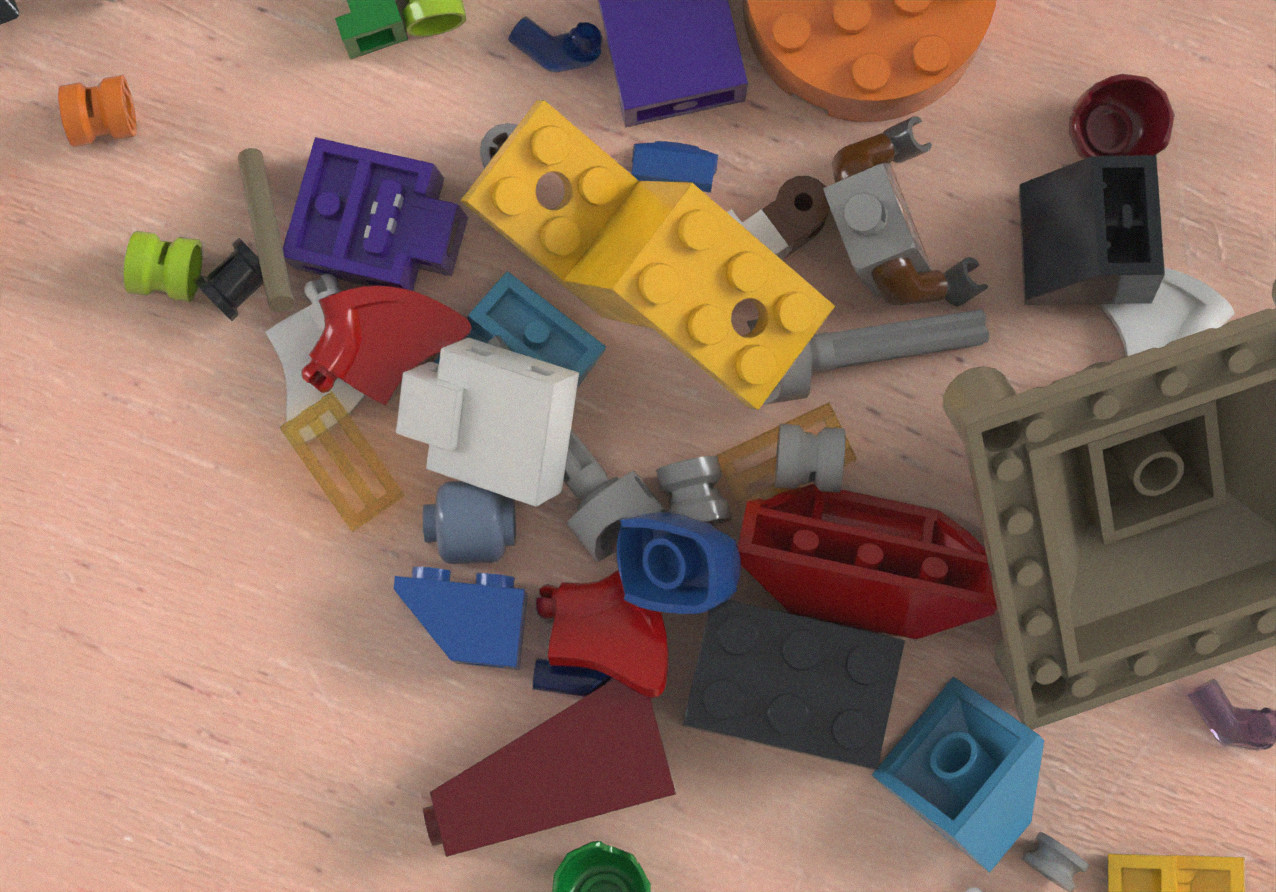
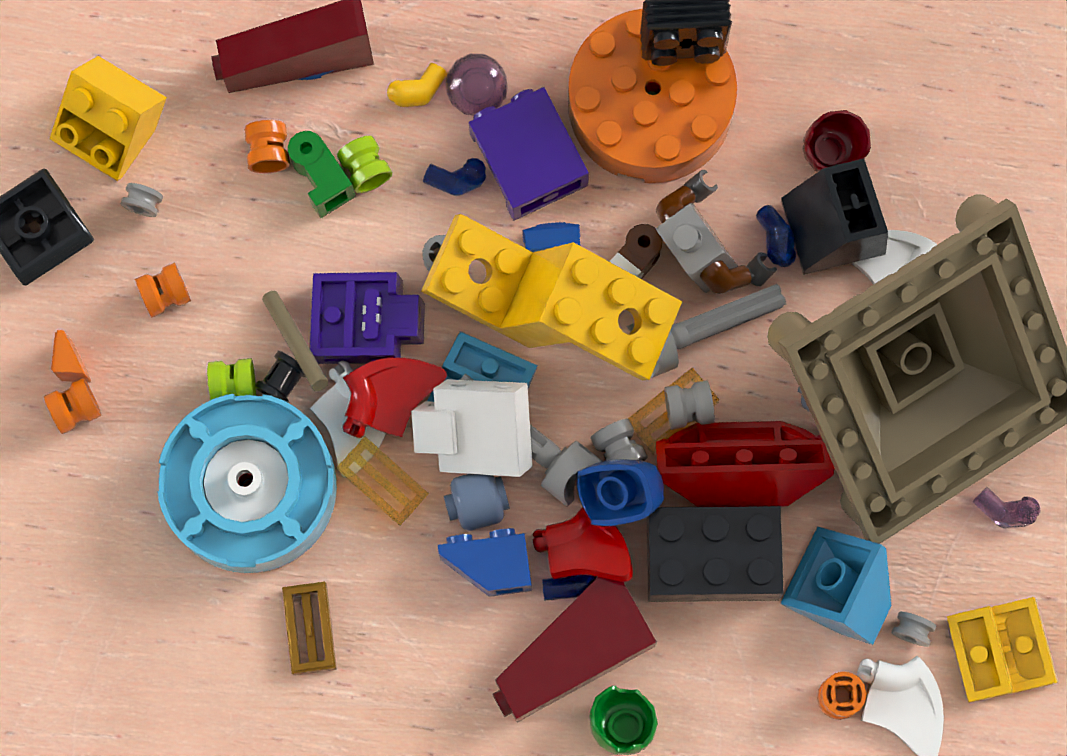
camera: 15 degrees left, 5 degrees down
(85, 409) = (241, 441): none -> medium azure piece
(213, 652) = (313, 664): none -> pearl gold tile
(1002, 240) = (778, 236): none -> clear blue arm

